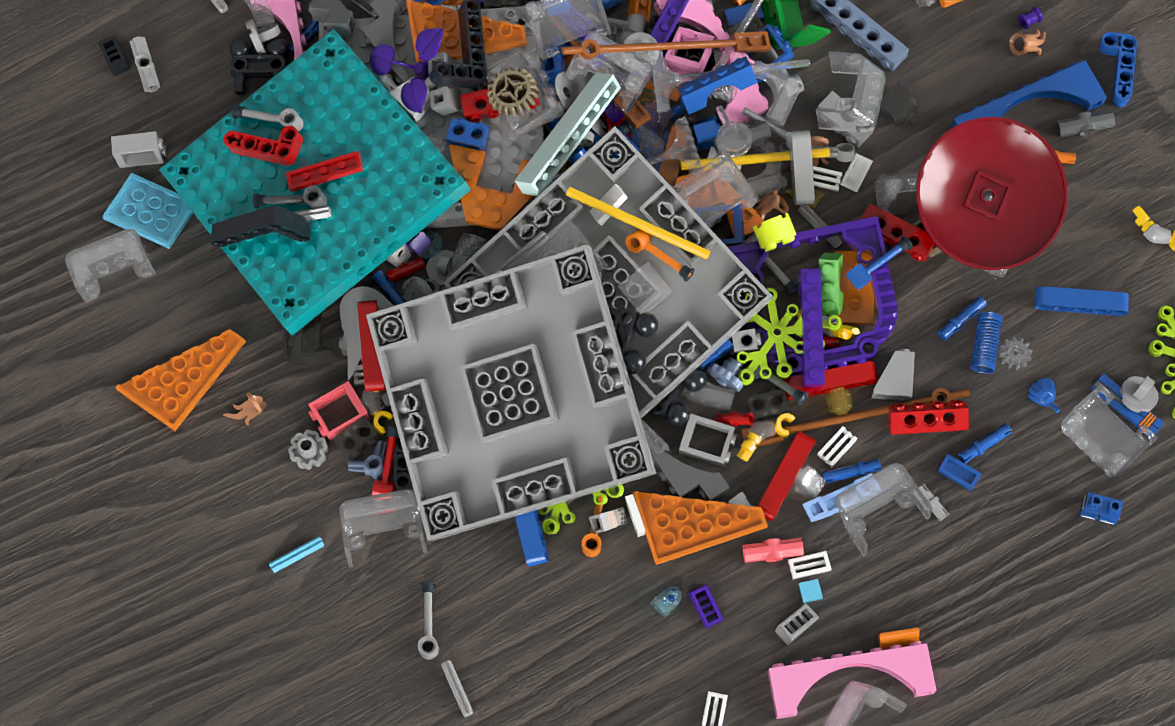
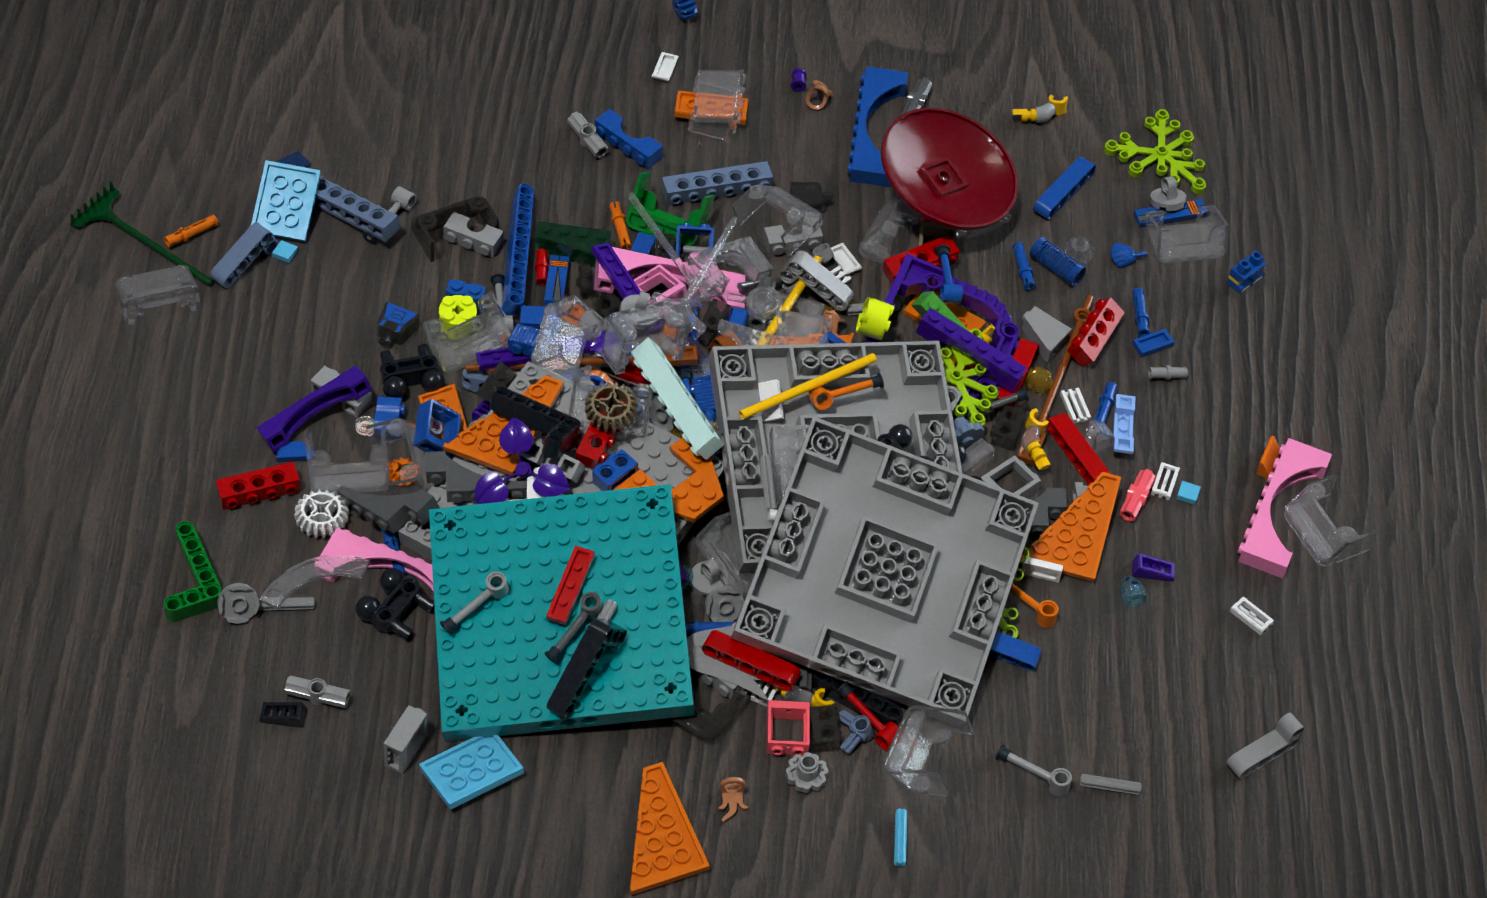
camera: 65 degrees left, 20 degrees down
(105, 258) = (511, 794): clear windscreen -> none
(261, 145) = (481, 640): red beam -> none
(262, 34) = (371, 583): light grey tile -> none
(405, 269) = (689, 603): red pin -> none
(608, 520) = (1036, 586): leg -> none
(645, 288) = (867, 418): clear plate -> none
(696, 92) = (707, 299): blue arch -> none
(735, 418) = (1006, 452): red pin -> none
(742, 42) = (682, 247): dark orange bar -> none
(787, 632) = (1212, 519): light grey slope -> none
(875, 492) = (1146, 380): clear windscreen -> none
(1121, 70) = (886, 50): blue beam -> none

